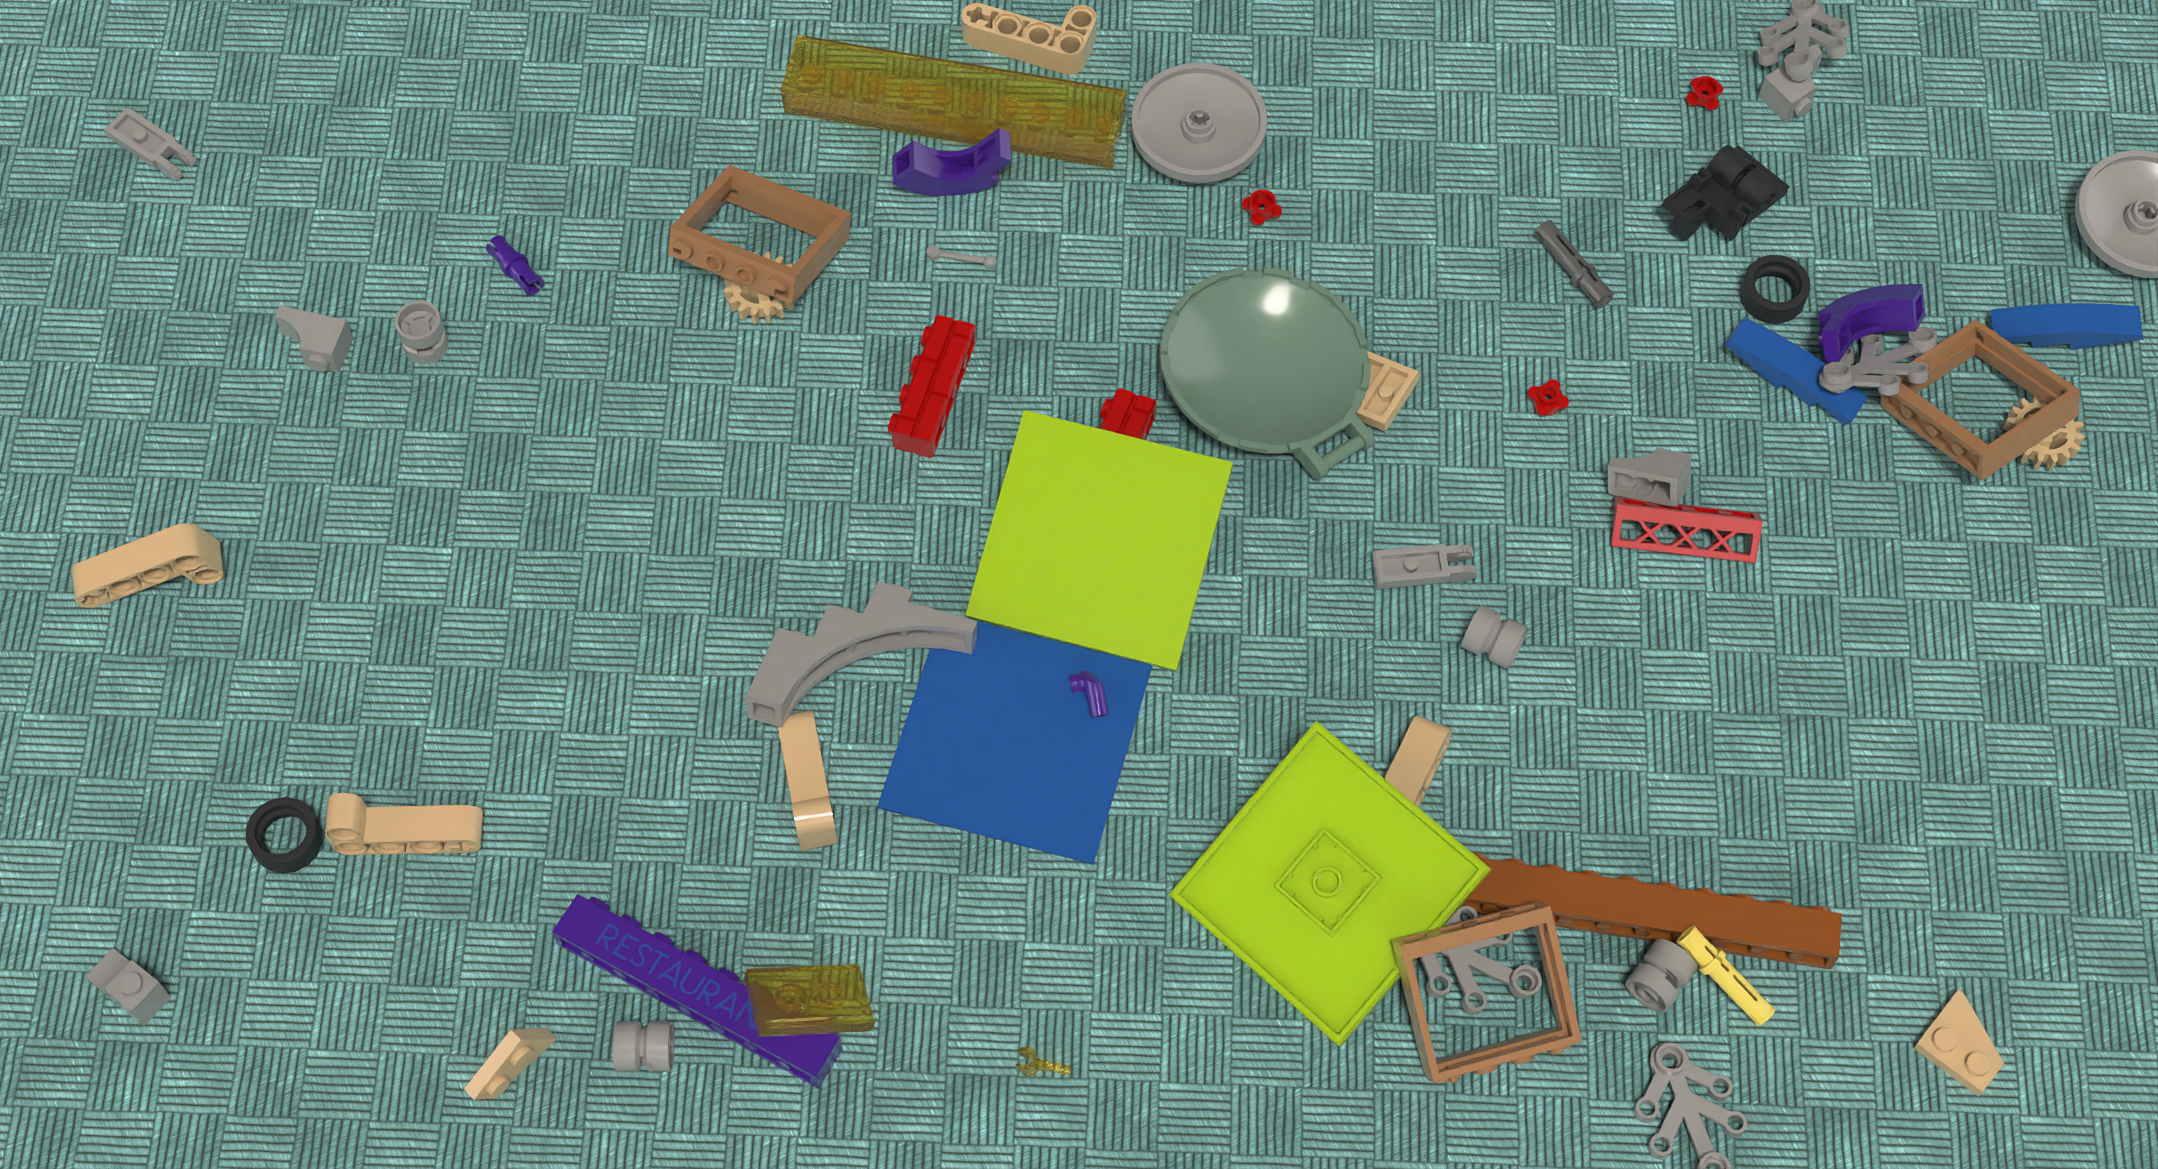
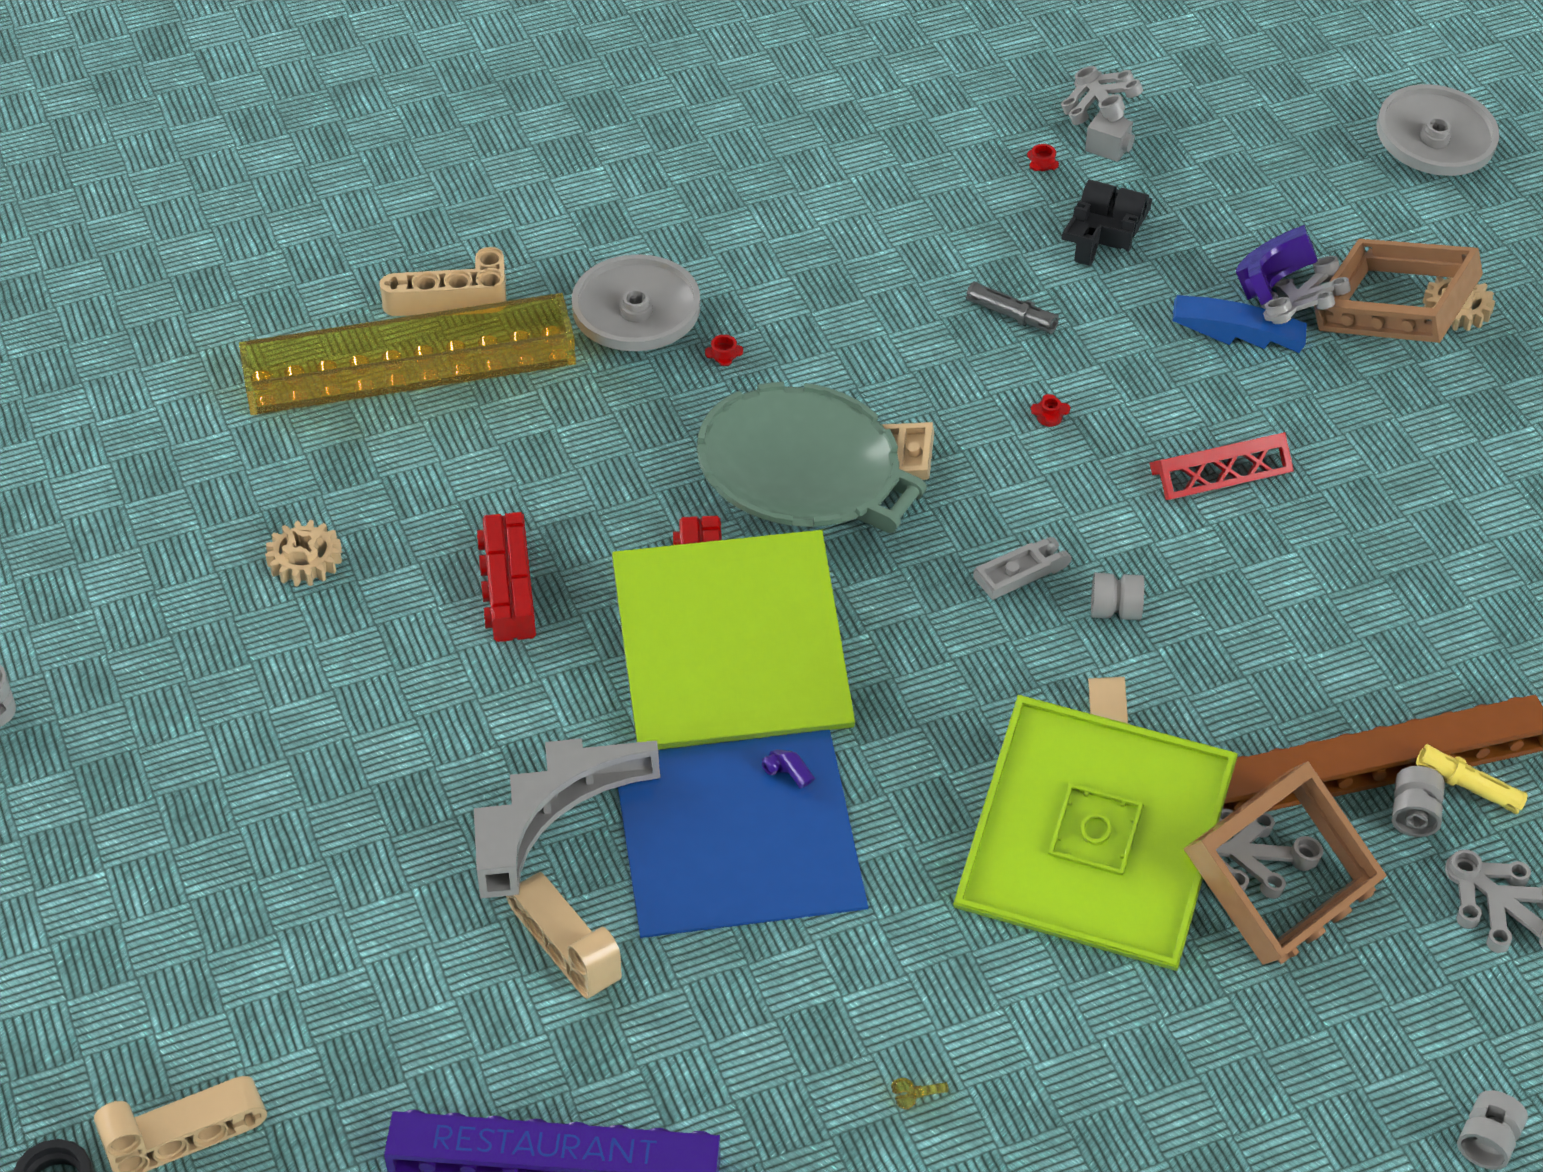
camera: 25 degrees left, 15 degrees down
(514, 265) = (52, 613): dark purple pin -> none
(772, 201) = (283, 483): medium nougat window -> none
(809, 1000) = (671, 1115): clear yellow tile -> none
(933, 253) = (449, 478): light grey hinge -> none
(951, 172) = (436, 409): dark purple arch -> none
(1653, 478) = (1172, 435): light grey arch -> none
(1780, 267) = (1185, 257): black tyre -> none
(2072, 323) = (1433, 220): blue slope -> none

